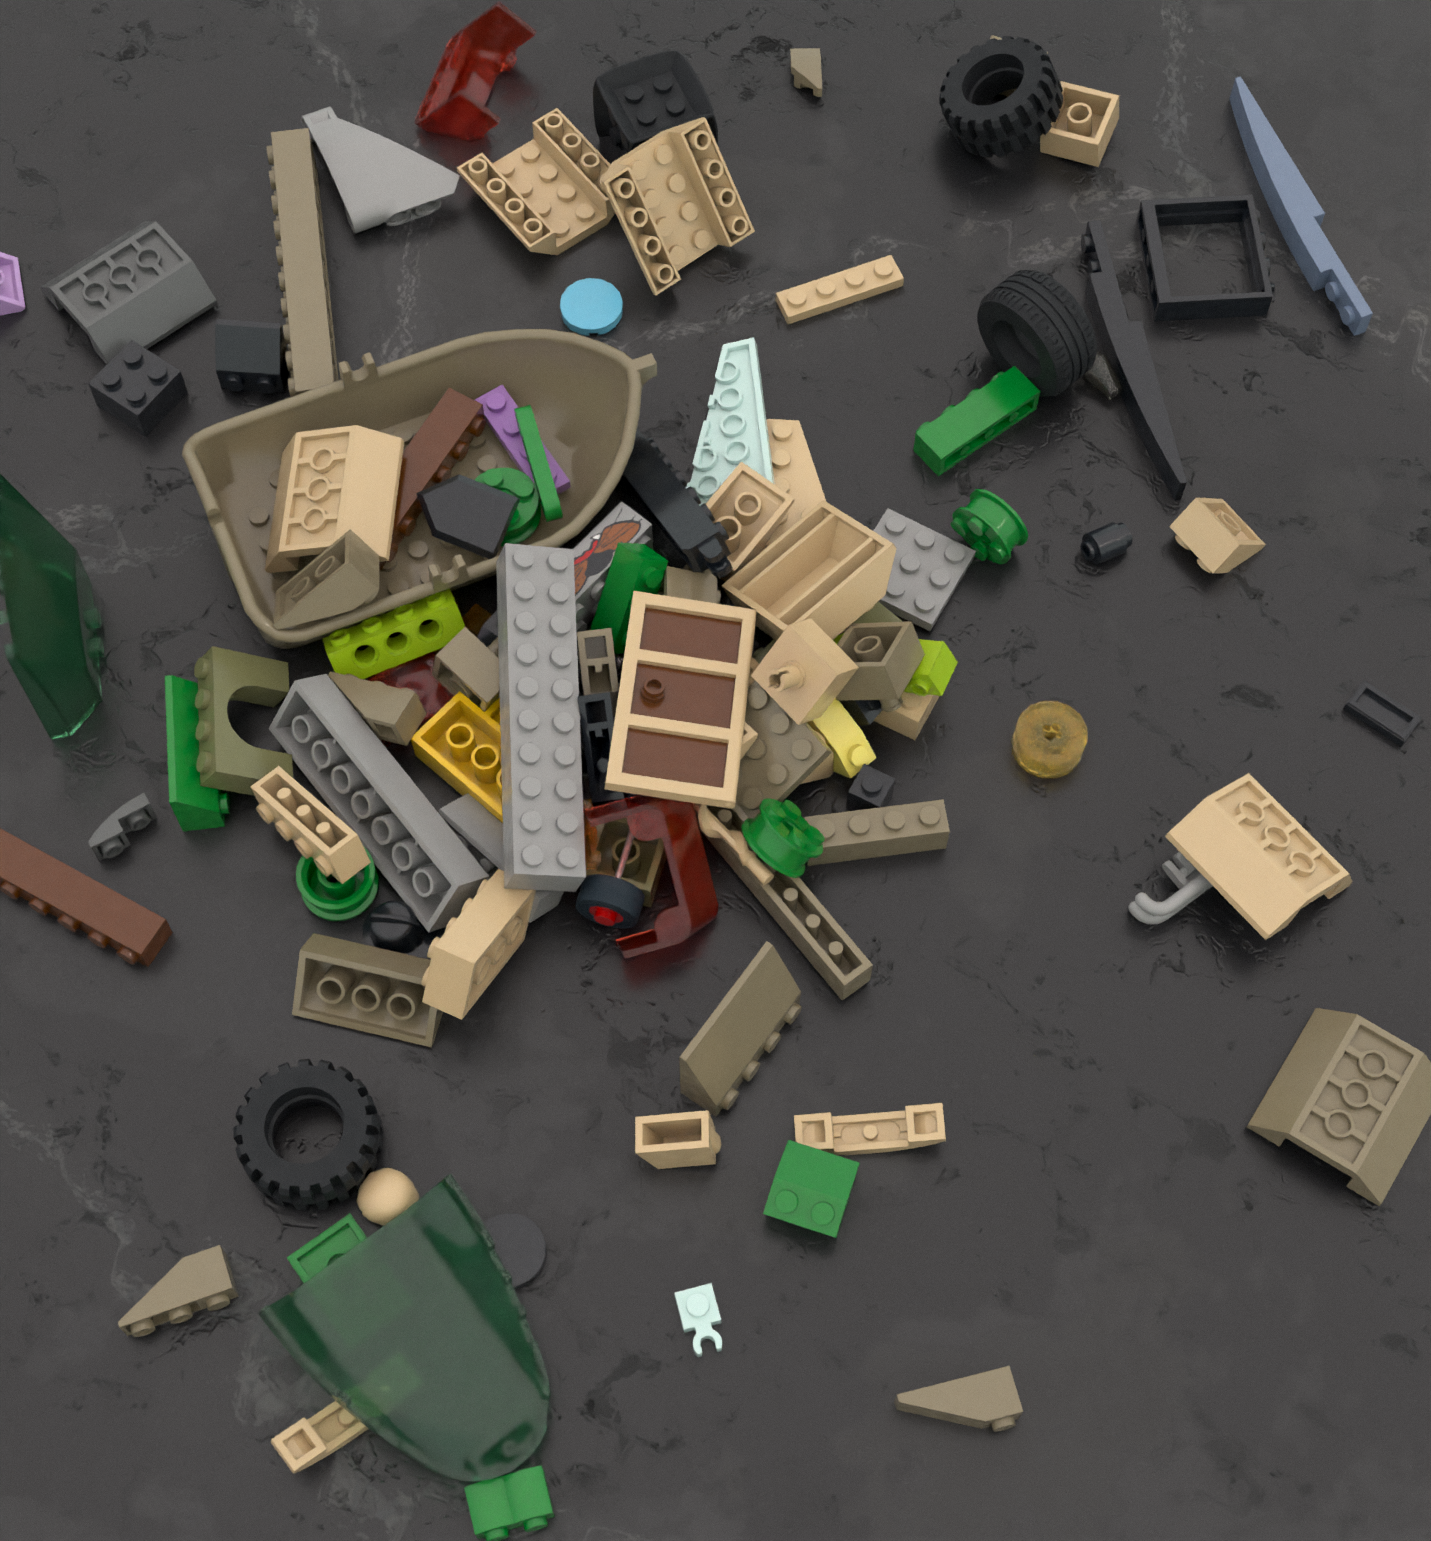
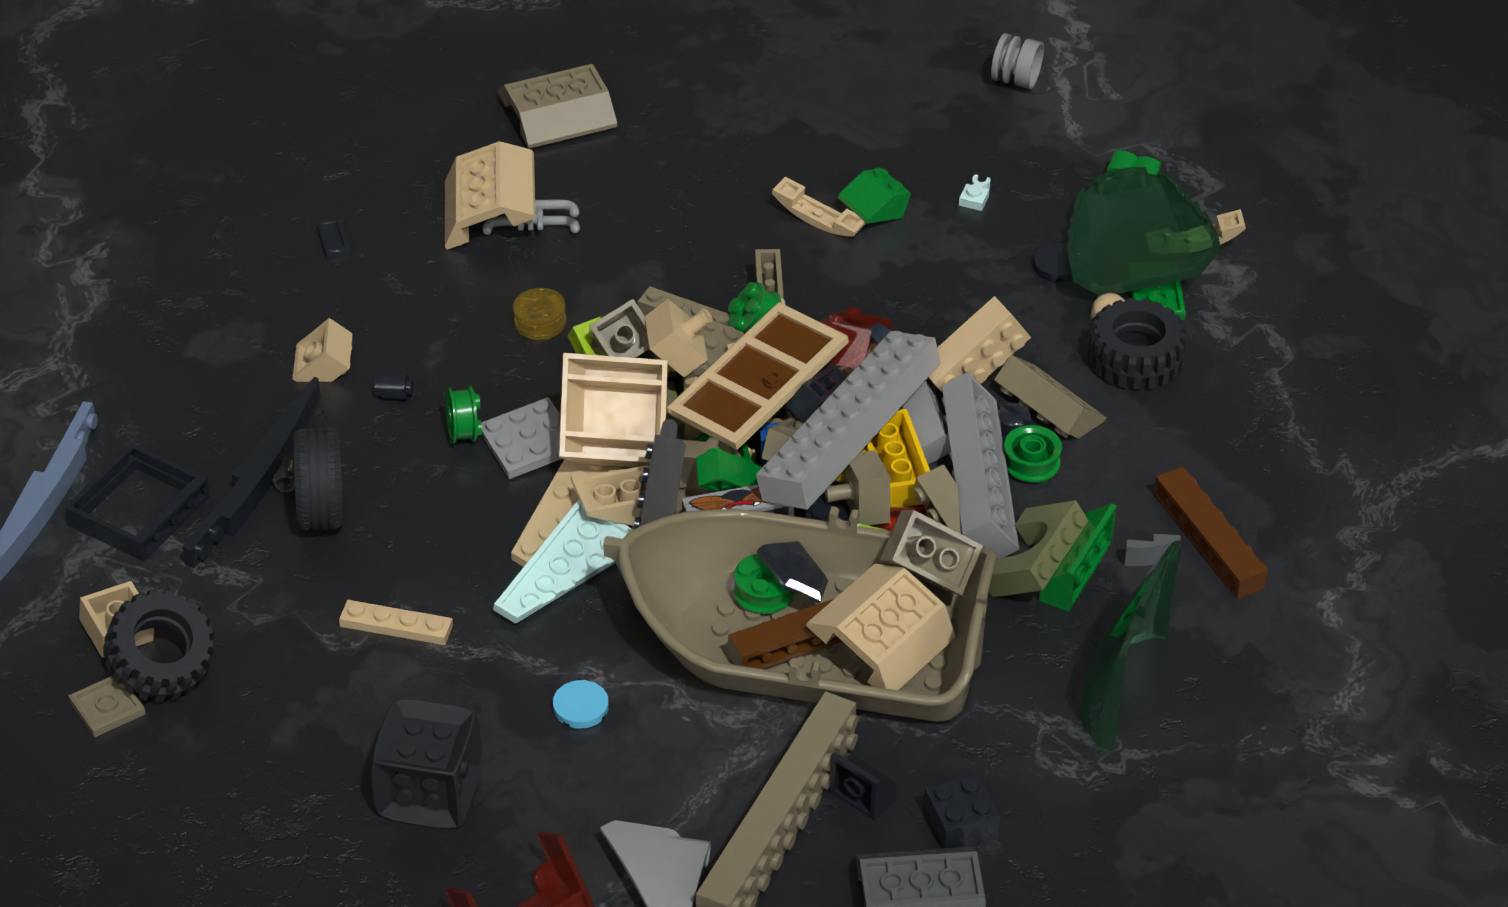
camera: 145 degrees left, 20 degrees down
(190, 1286) = (1255, 323): dark tan slope -> none
(310, 824) = (1034, 453): tan brick -> none
(501, 419) = (715, 619): medium lavender plate -> none
(538, 463) = (721, 581): green beam -> none
(546, 188) = (540, 795): tan slope -> none
(675, 201) = (514, 680): tan slope -> none
(677, 1139) = (929, 242): tan torso -> none
(739, 1032) = (857, 264): dark tan slope -> none
(806, 68) = (253, 783): dark tan slope -> none
(973, 1400) = (869, 101): dark tan slope -> none
(976, 420) = (397, 488): green brick -> none

